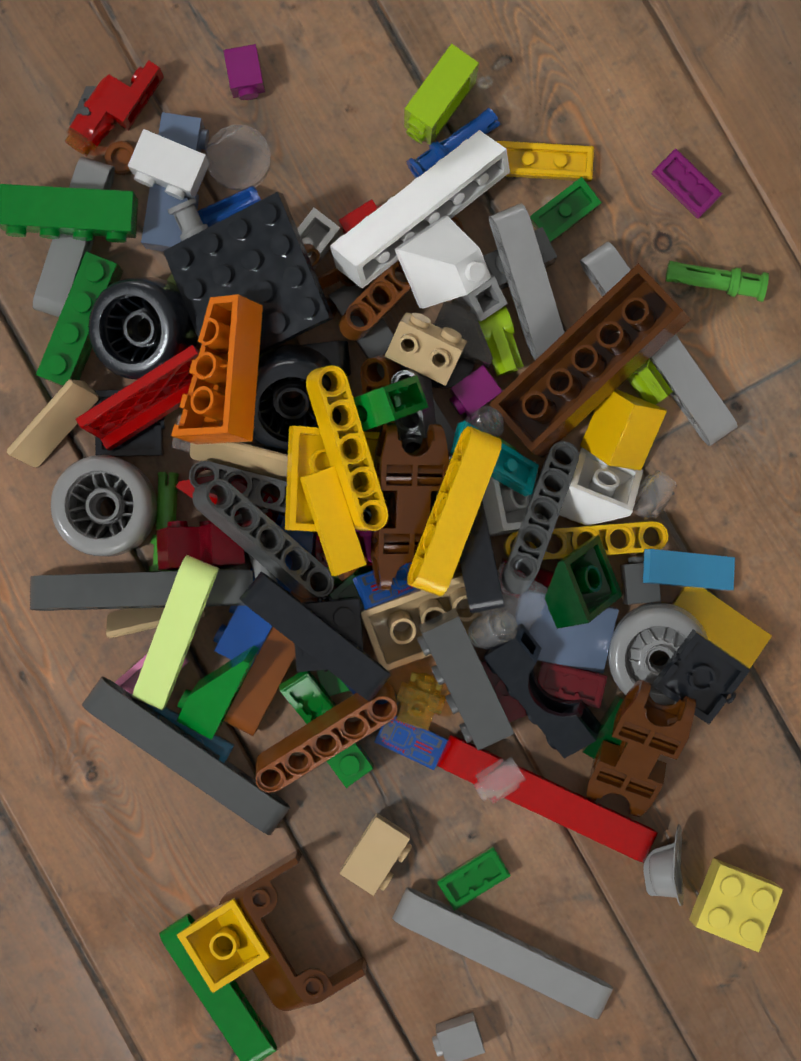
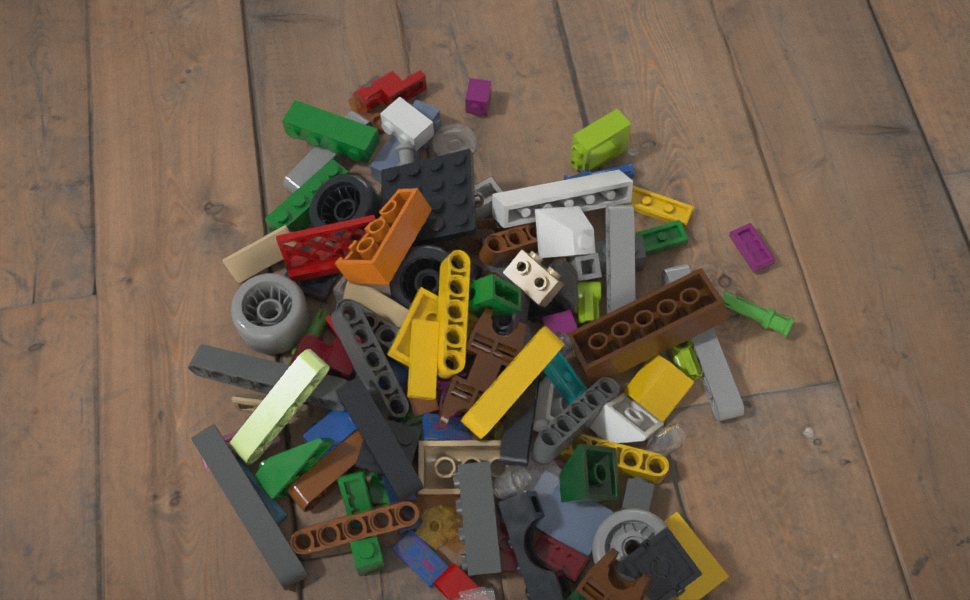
camera: 20 degrees right, 25 degrees down
(688, 569) = (677, 500): dark azure tile -> none

